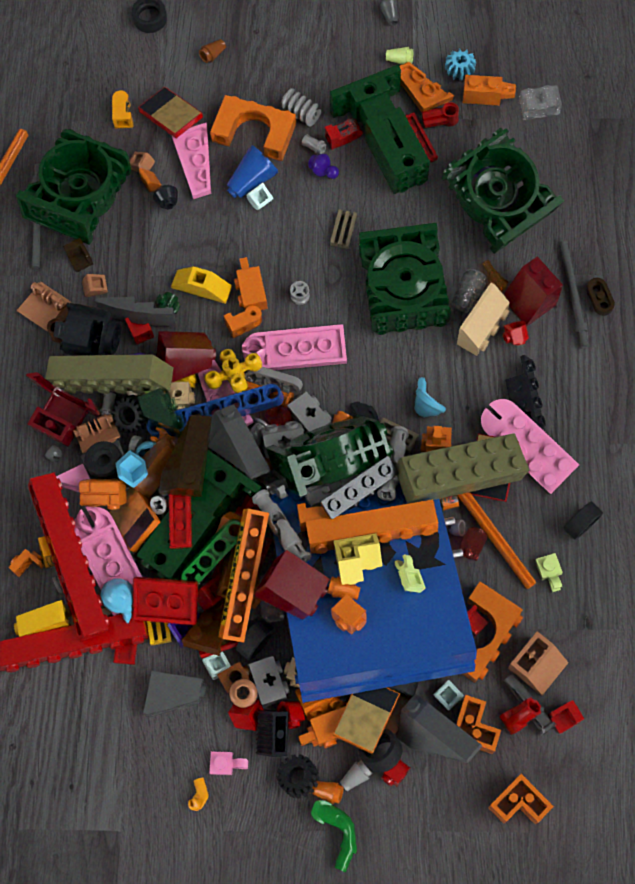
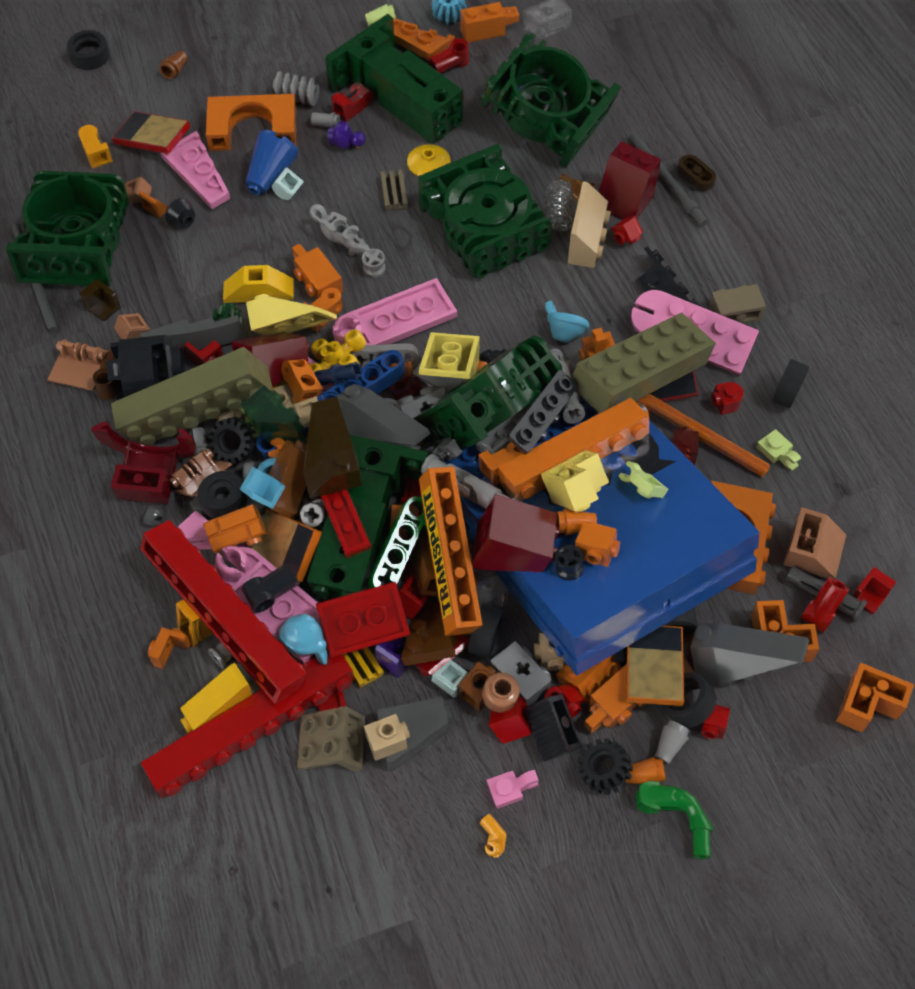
camera: 25 degrees left, 10 degrees down
(102, 551) = (264, 590): none -> black piece
(114, 679) = (331, 738): none -> dark tan bracket
(148, 696) = (386, 736): none -> tan brick
(192, 409) = (303, 410): none -> tan tile
(197, 385) = (300, 380): none -> orange leg
(204, 319) = (277, 315): none -> light yellow slope
(225, 390) = (338, 373): none -> dark blue pin
(281, 254) = (338, 231): none -> light grey animal
(314, 409) = (450, 356): none -> light yellow slope
(322, 616) = (563, 558): none -> black wheel
(383, 217) = (427, 158): none -> yellow dish
(448, 695) = (734, 612): light aqua brick -> none
(529, 511) = (727, 397): none -> red plate
(575, 433) = (739, 304): none -> dark tan brick

